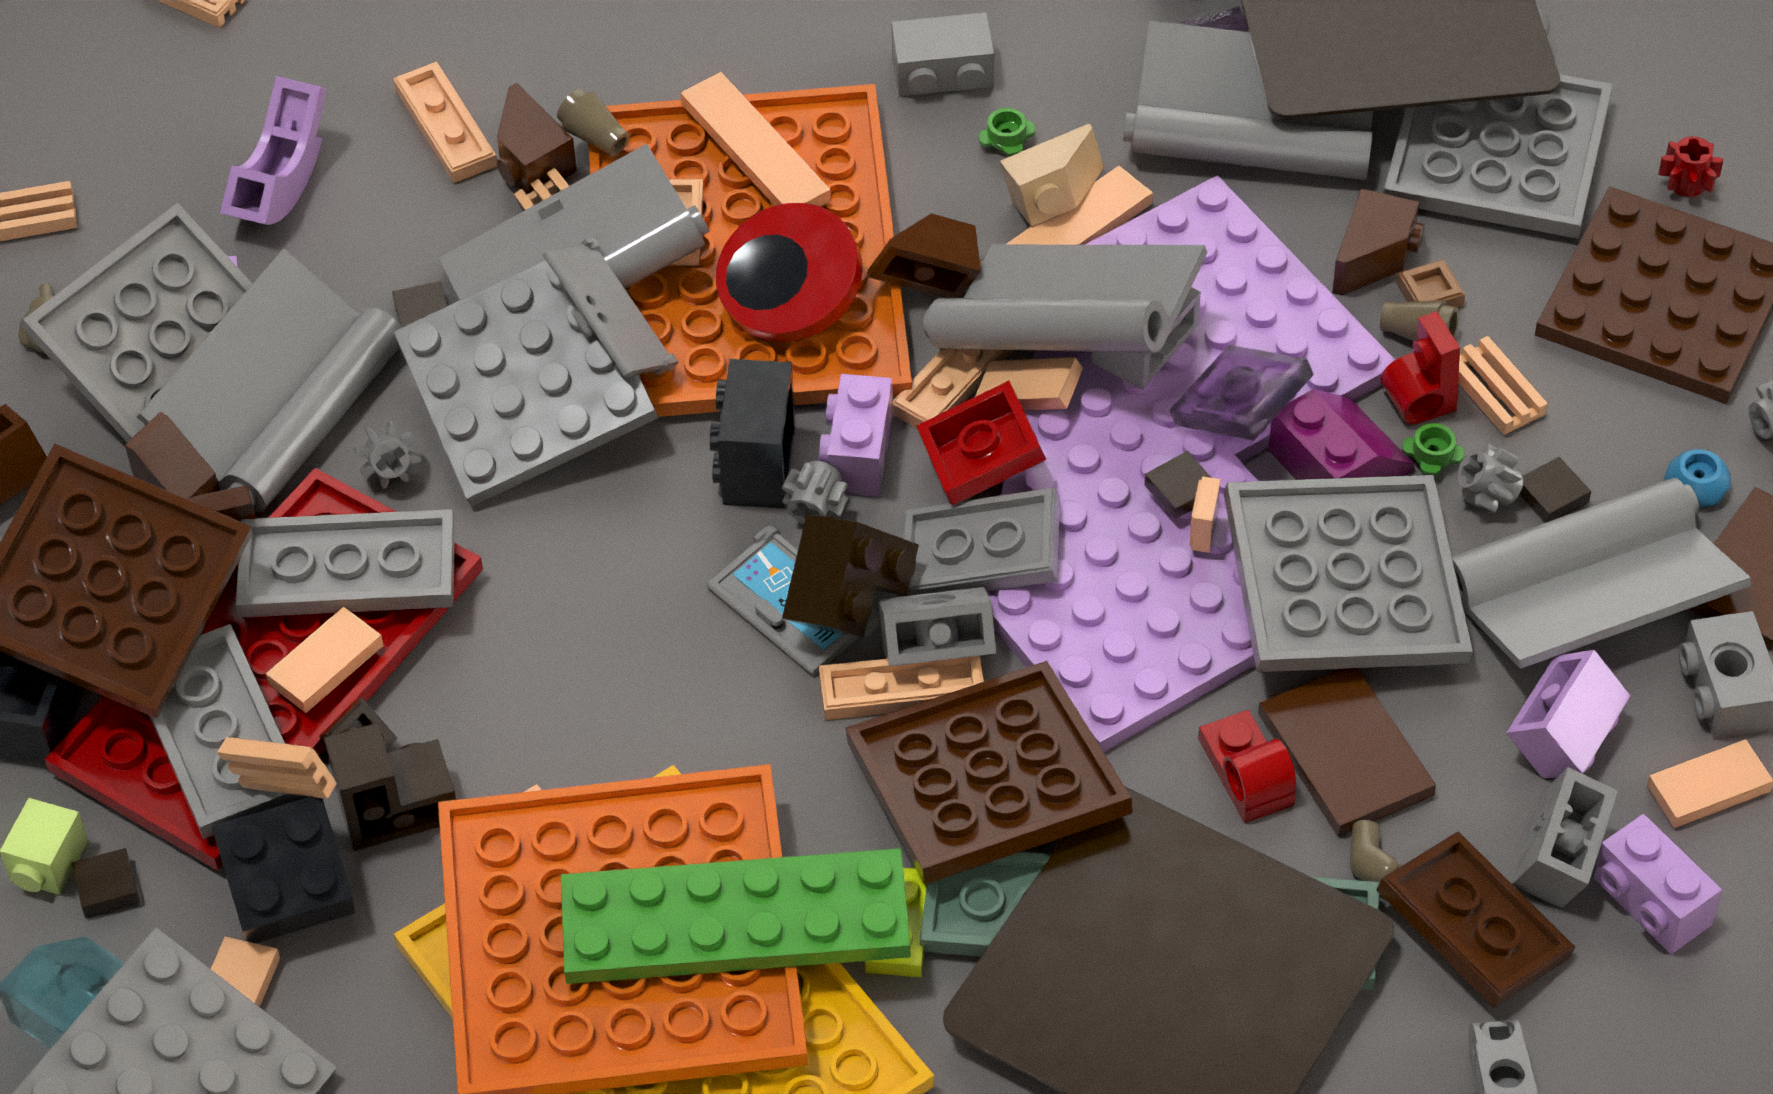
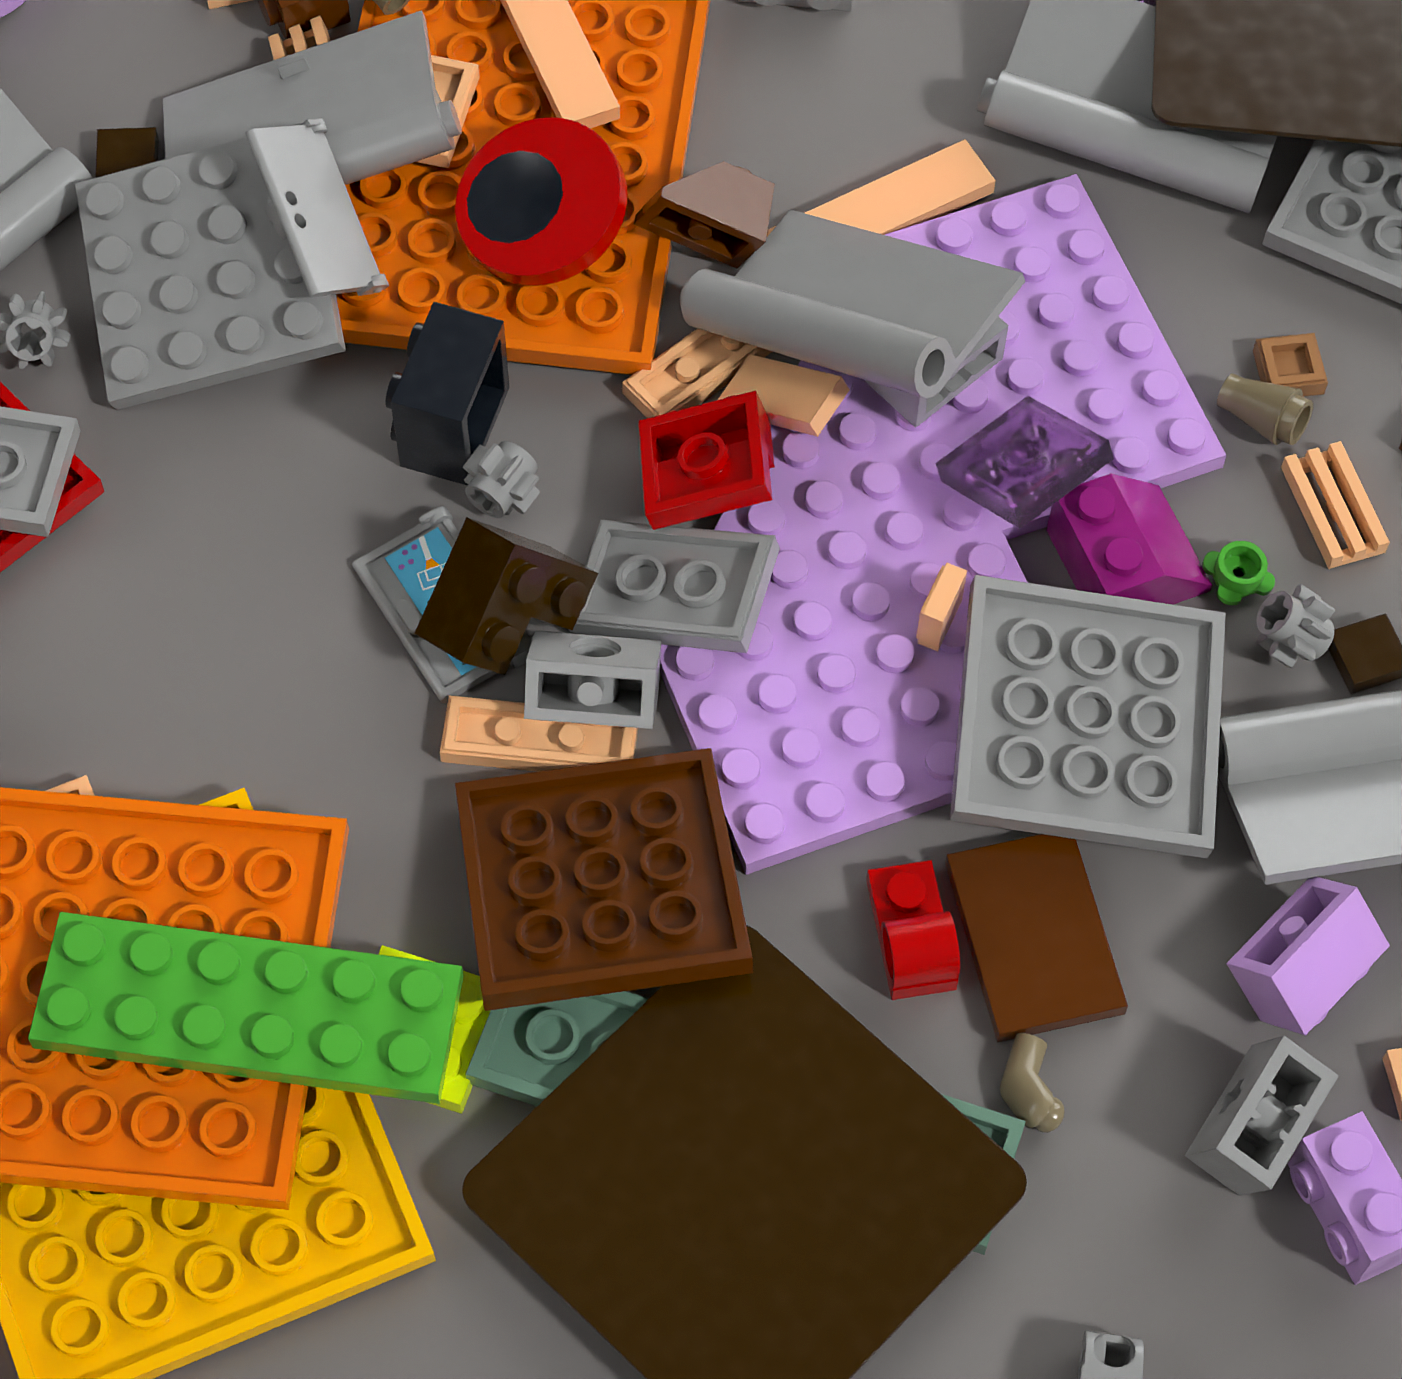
camera: 10 degrees right, 10 degrees up
(859, 432) = (572, 415): lavender brick -> none
(1006, 131) = (852, 59): bright green plate -> none
(1053, 174) = (885, 137): tan slope -> none
(1176, 483) = (920, 555): dark brown tile -> none
(1376, 240) = (1240, 294): reddish brown slope -> none
(1426, 380) = (1252, 483): red plate -> none
(1475, 919) = (1129, 1193): reddish brown tile -> none

